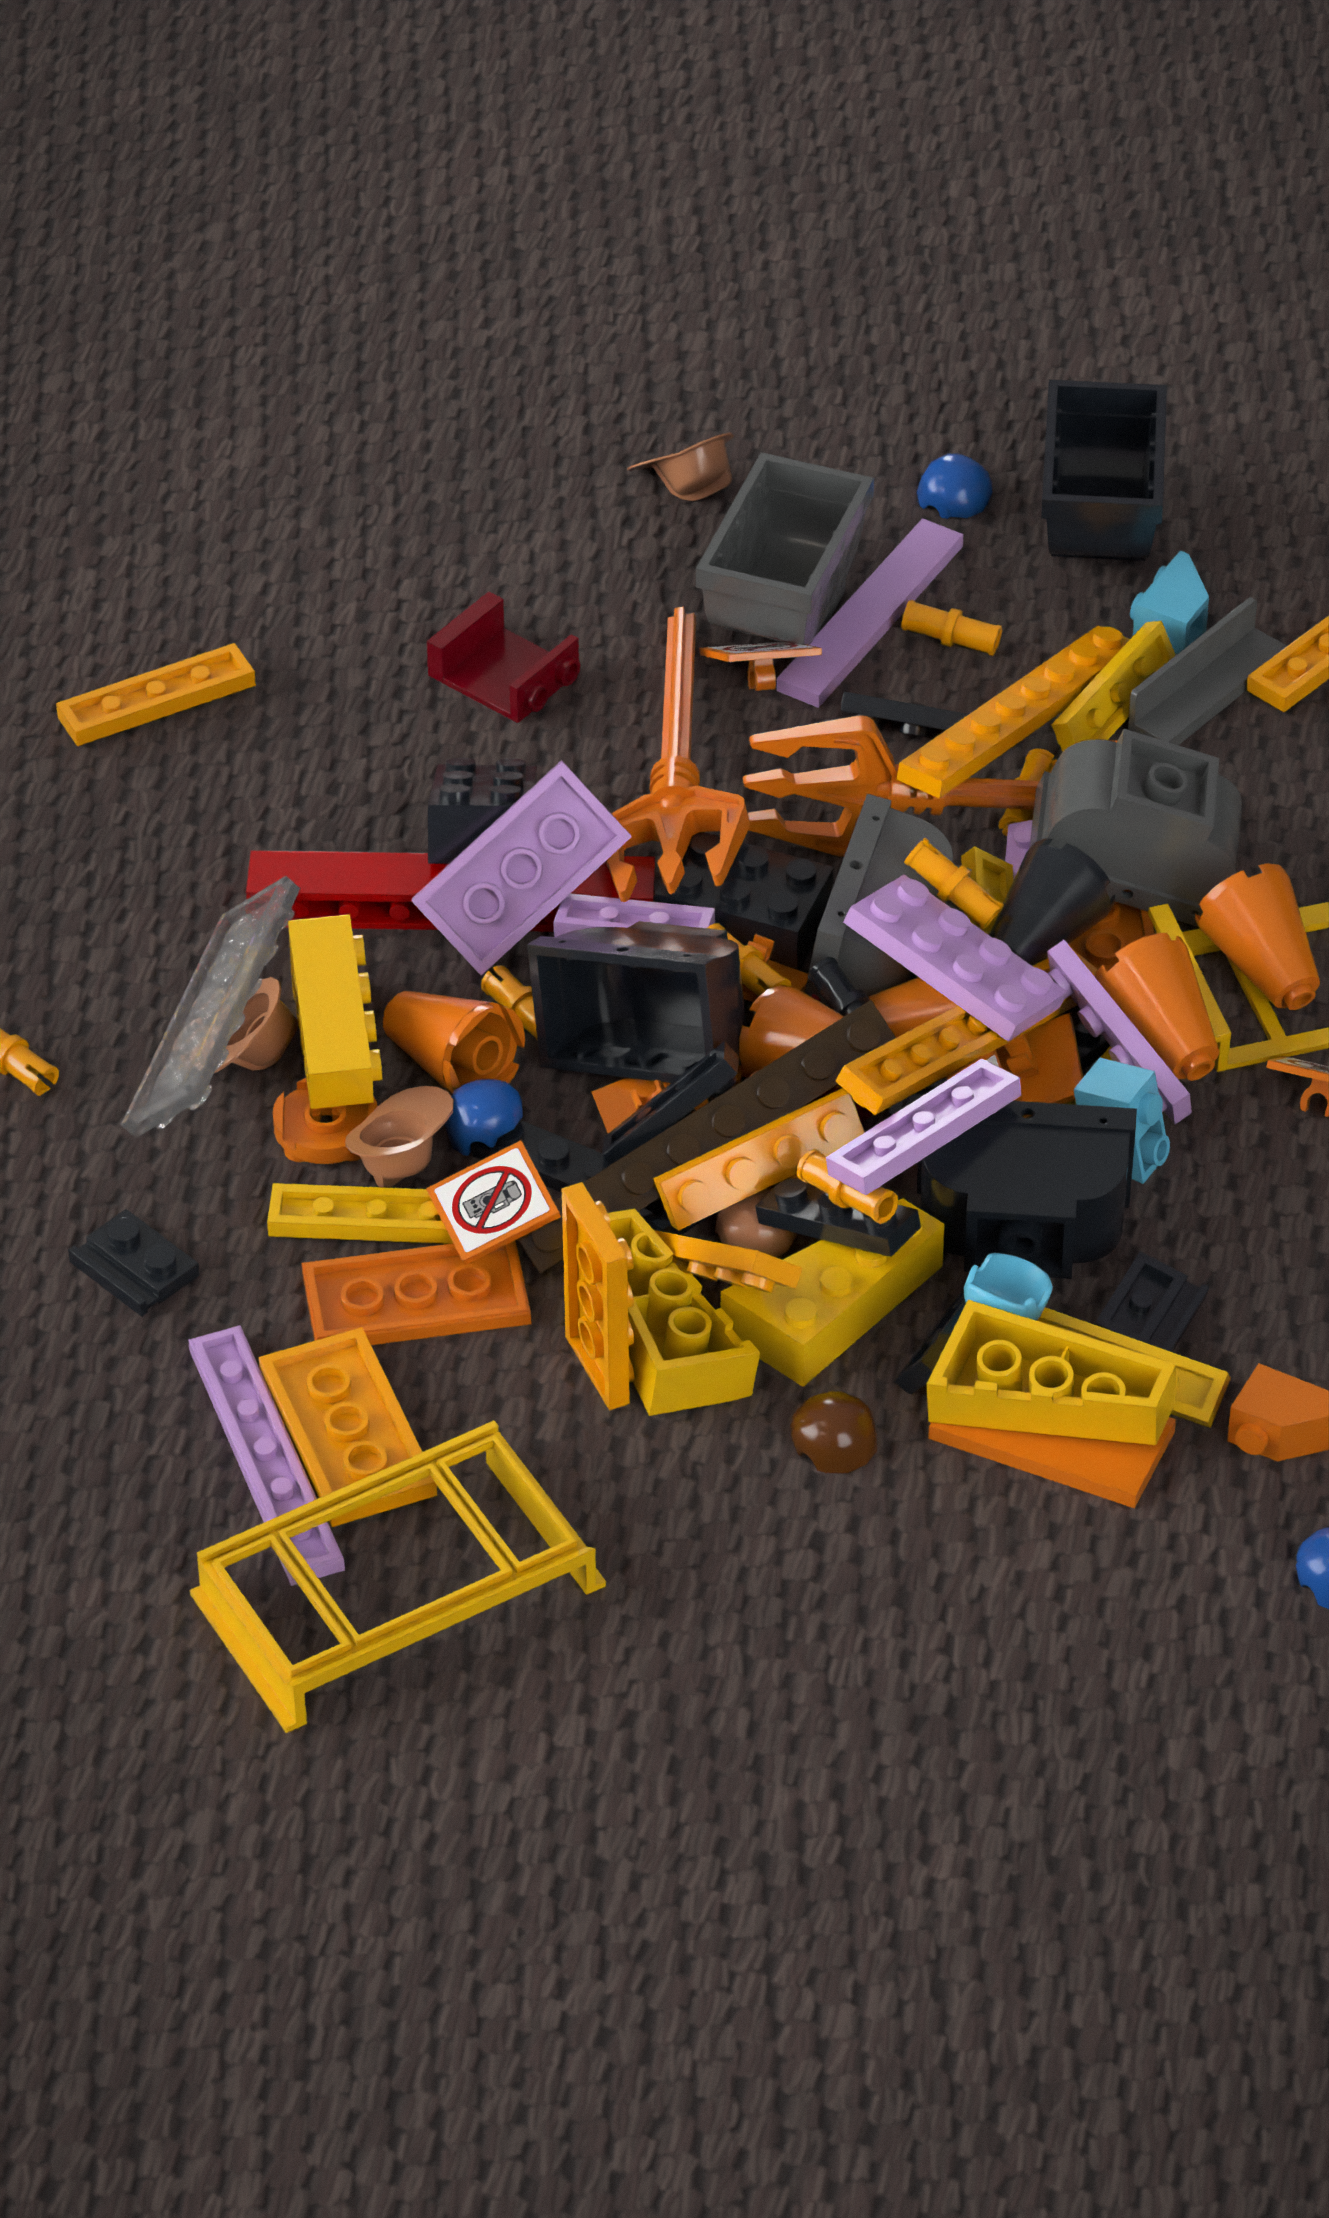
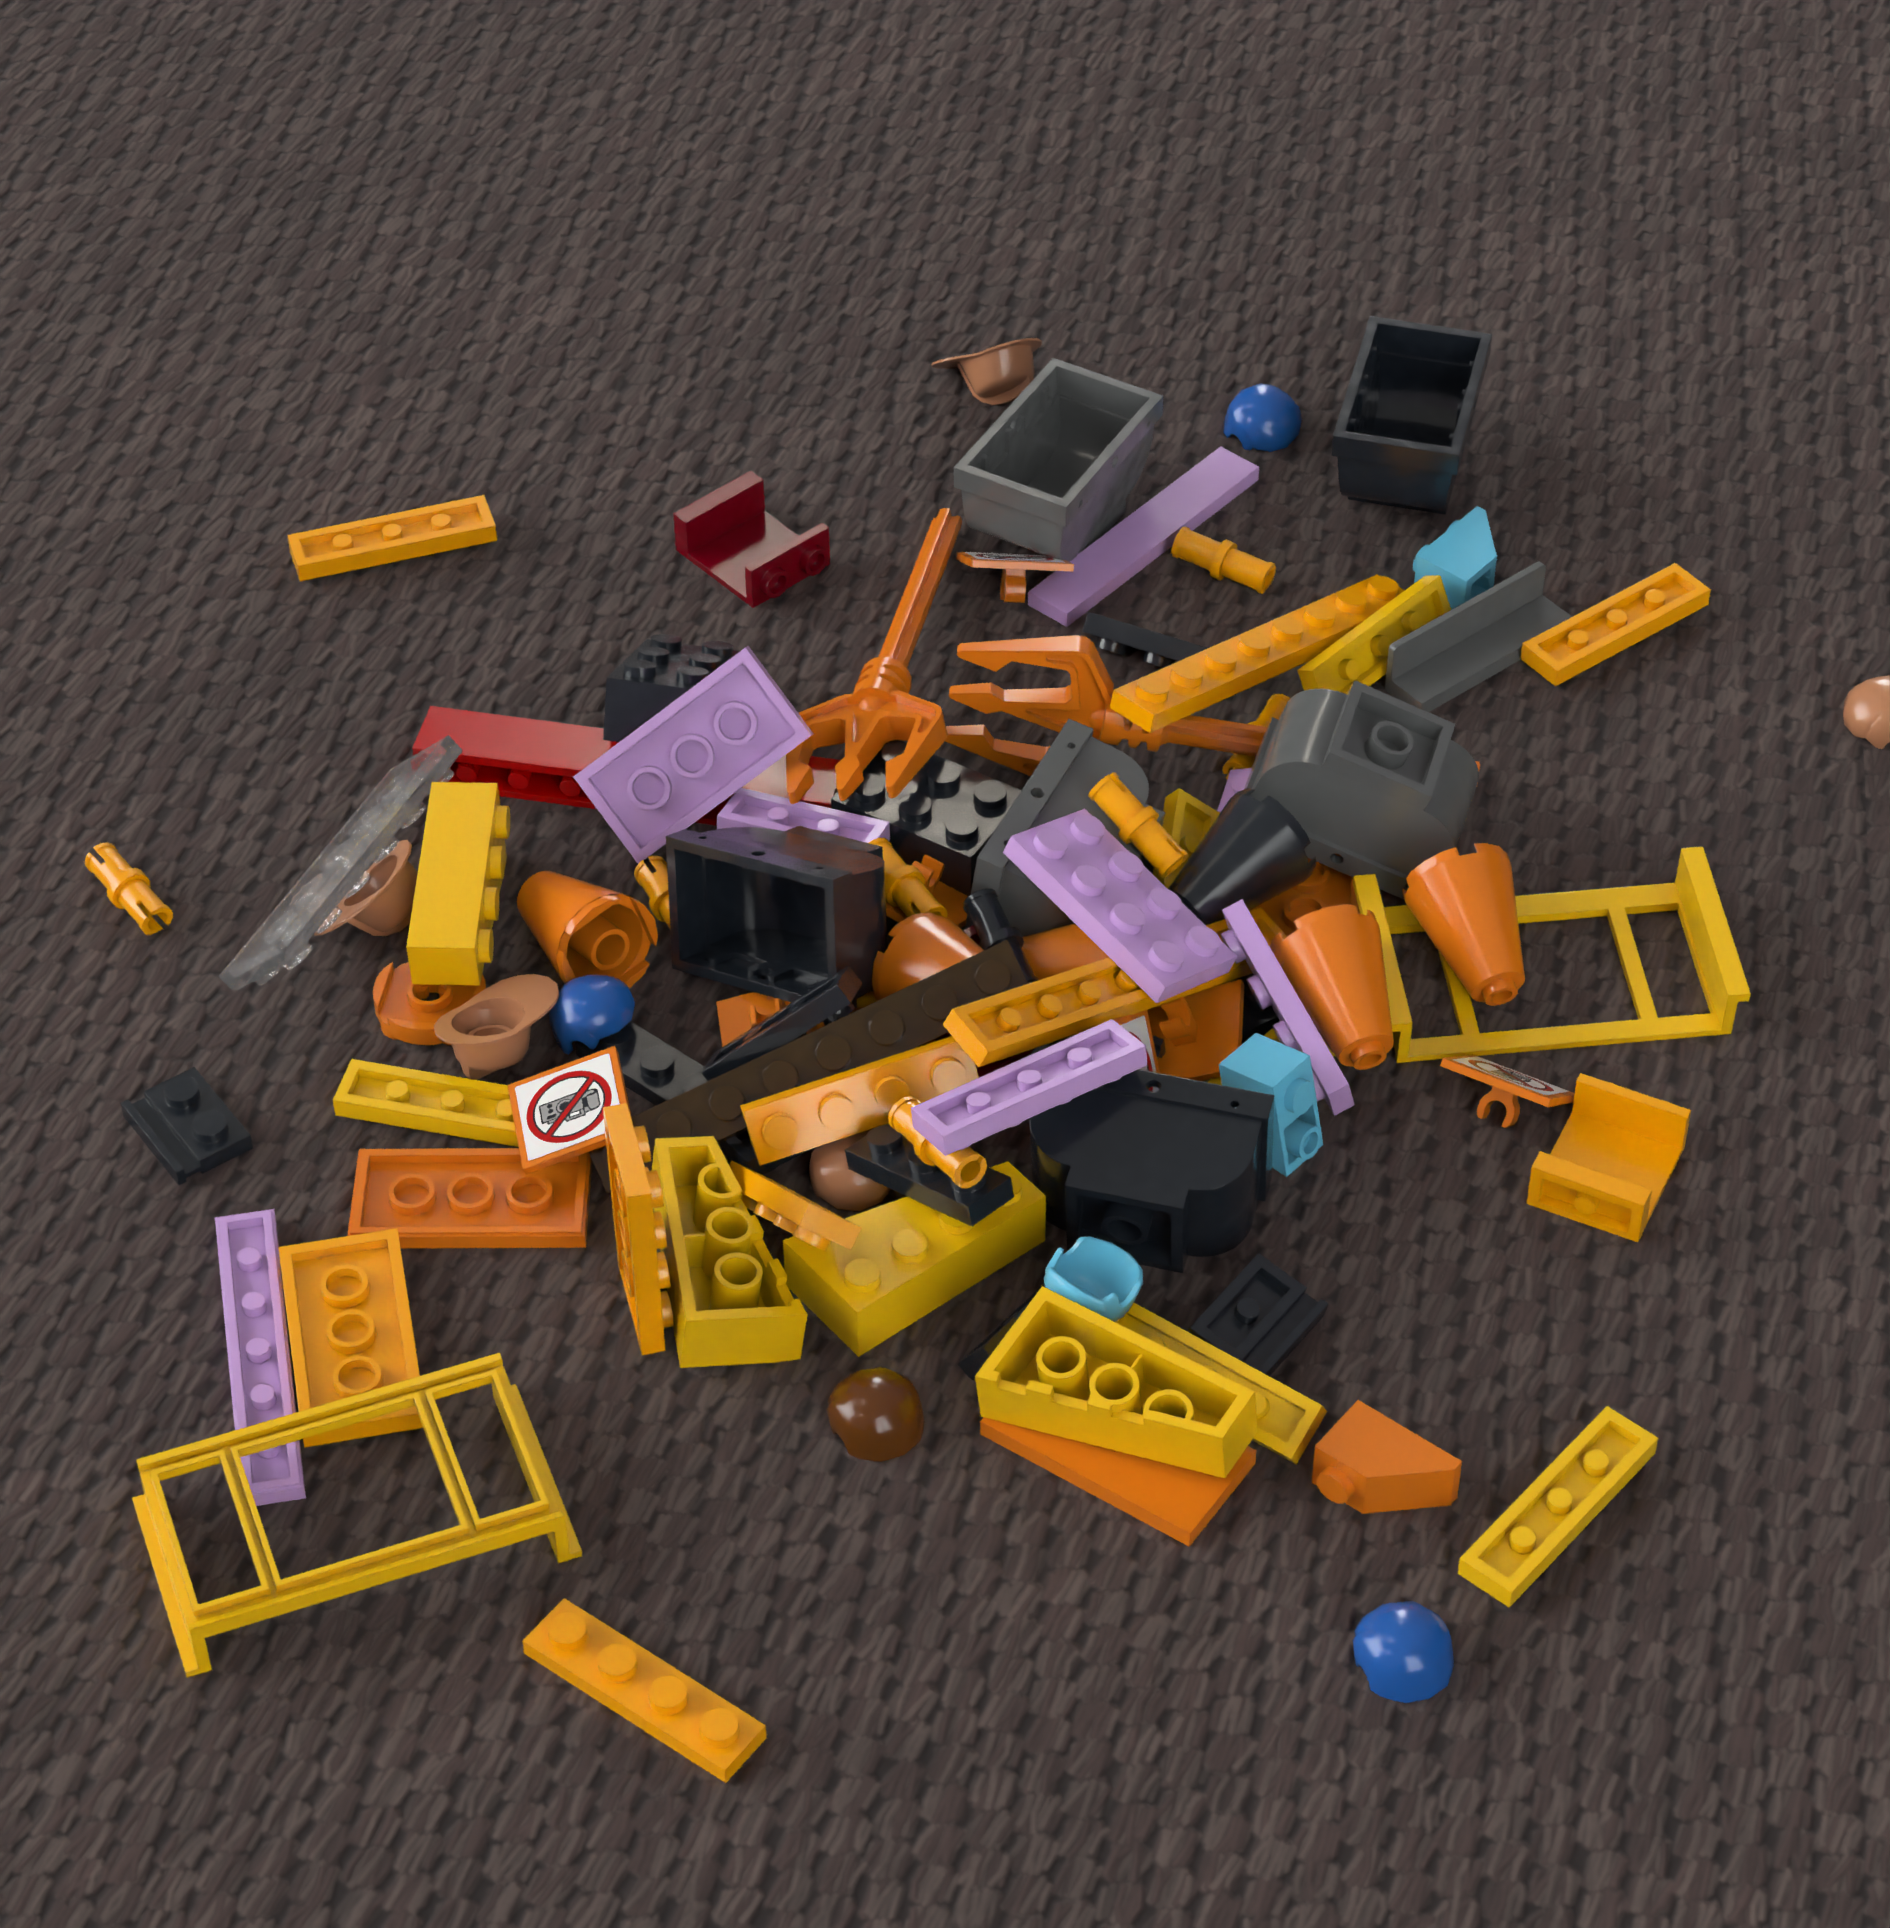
camera: 10 degrees right, 0 degrees up
(694, 1687) = (645, 1690): none -> light orange plate

